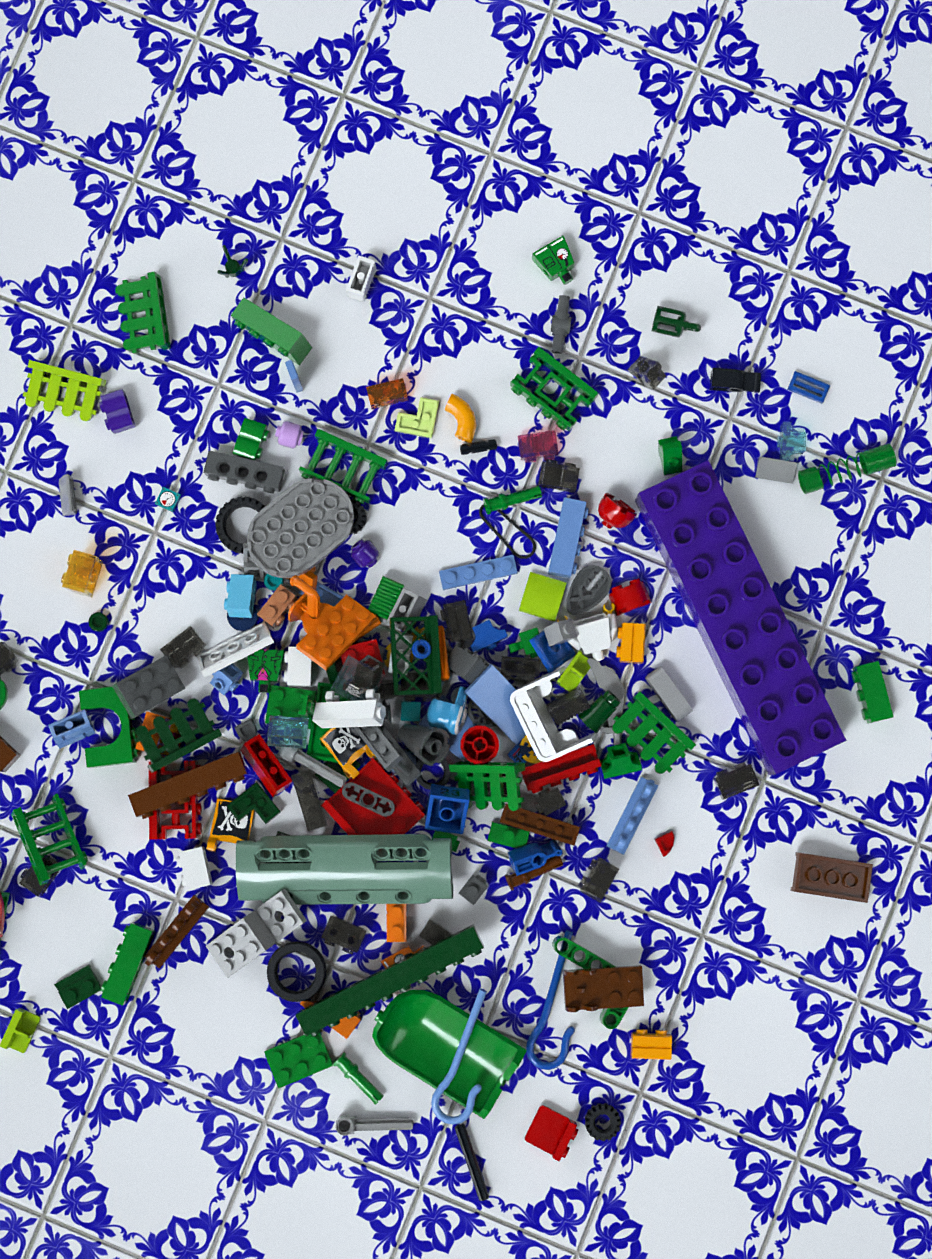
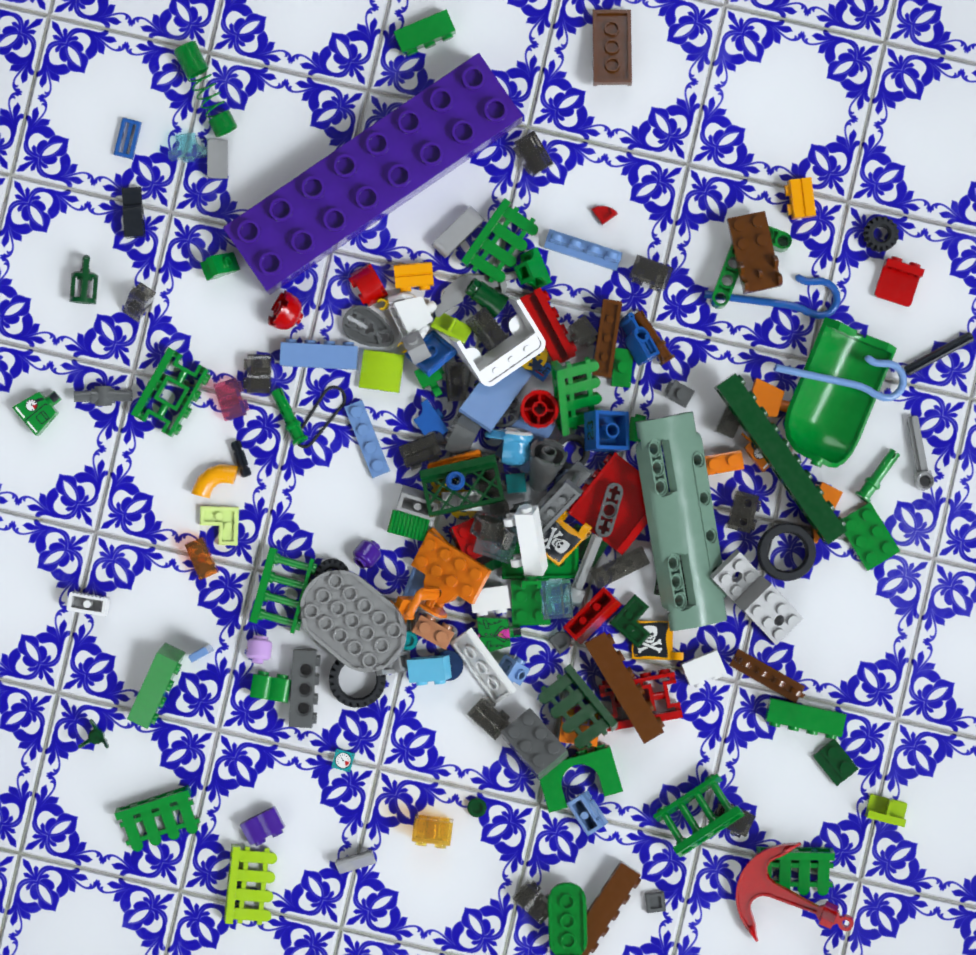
camera: 105 degrees left, 5 degrees up
(454, 979) = (769, 397): none -> orange torso

